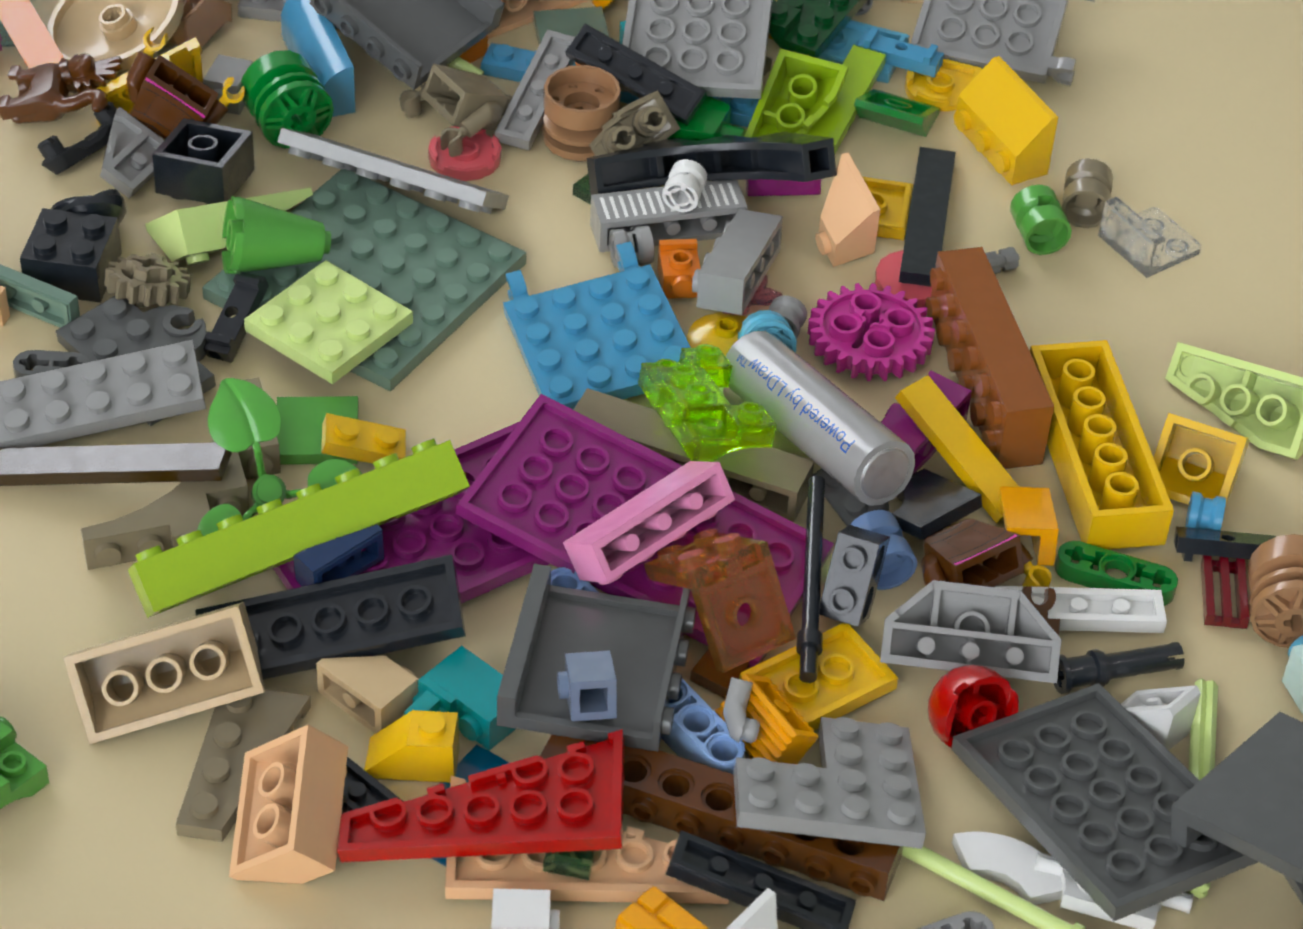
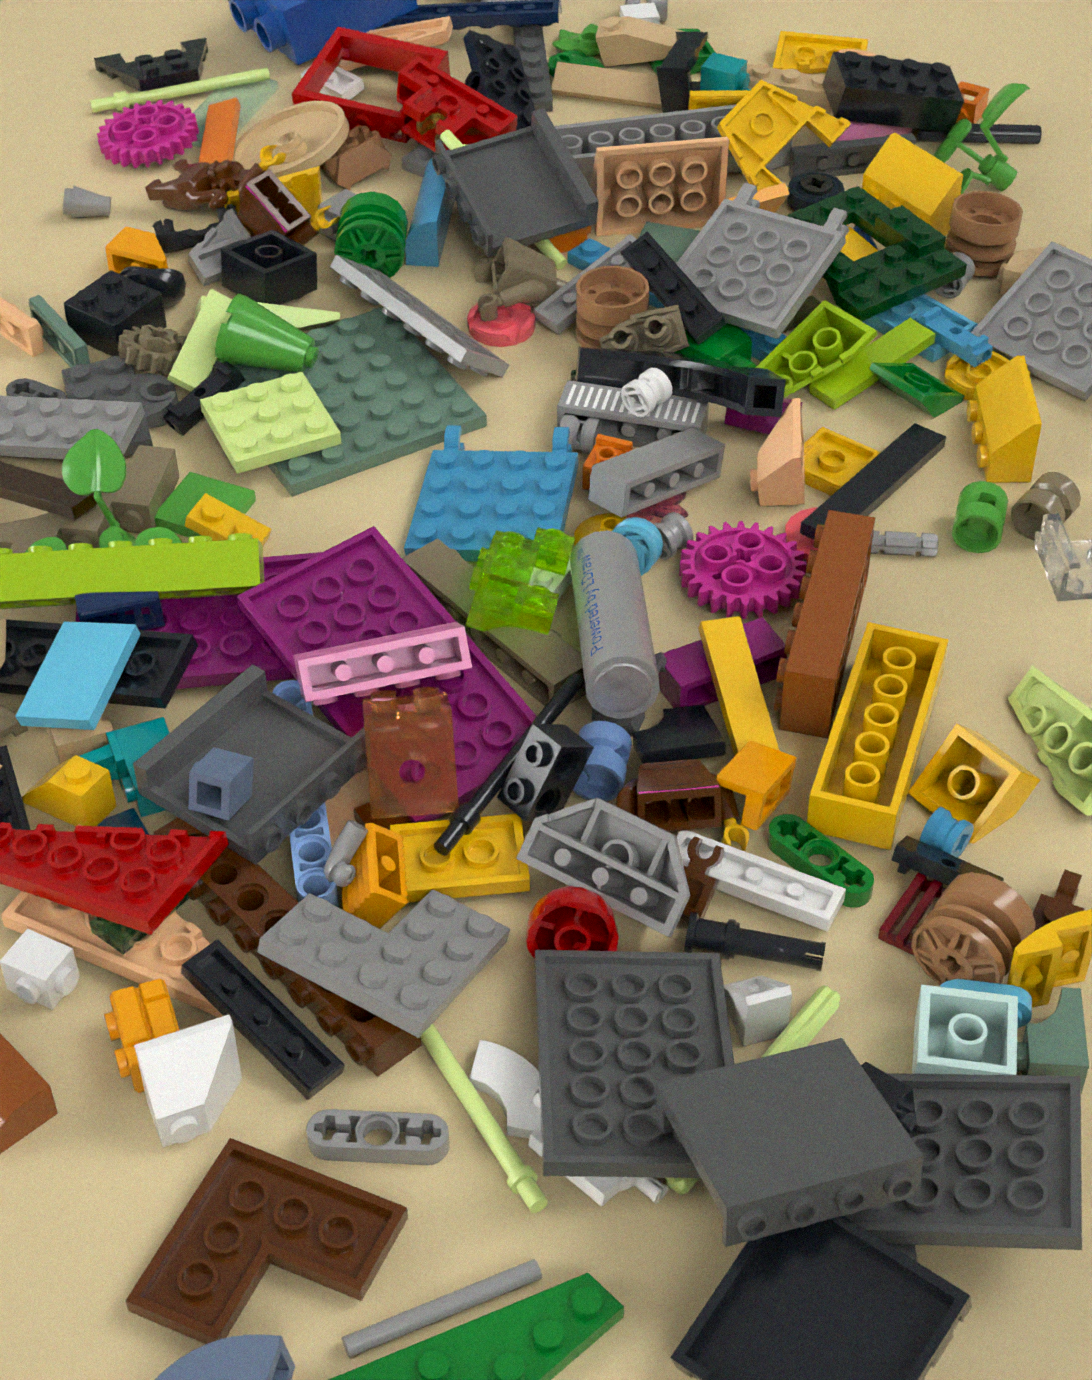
camera: 30 degrees right, 0 degrees up
(42, 182) = (134, 248): none -> light orange slope
(204, 257) = (198, 351): none -> yellowish green tile
(359, 632) = (78, 675): none -> medium azure tile

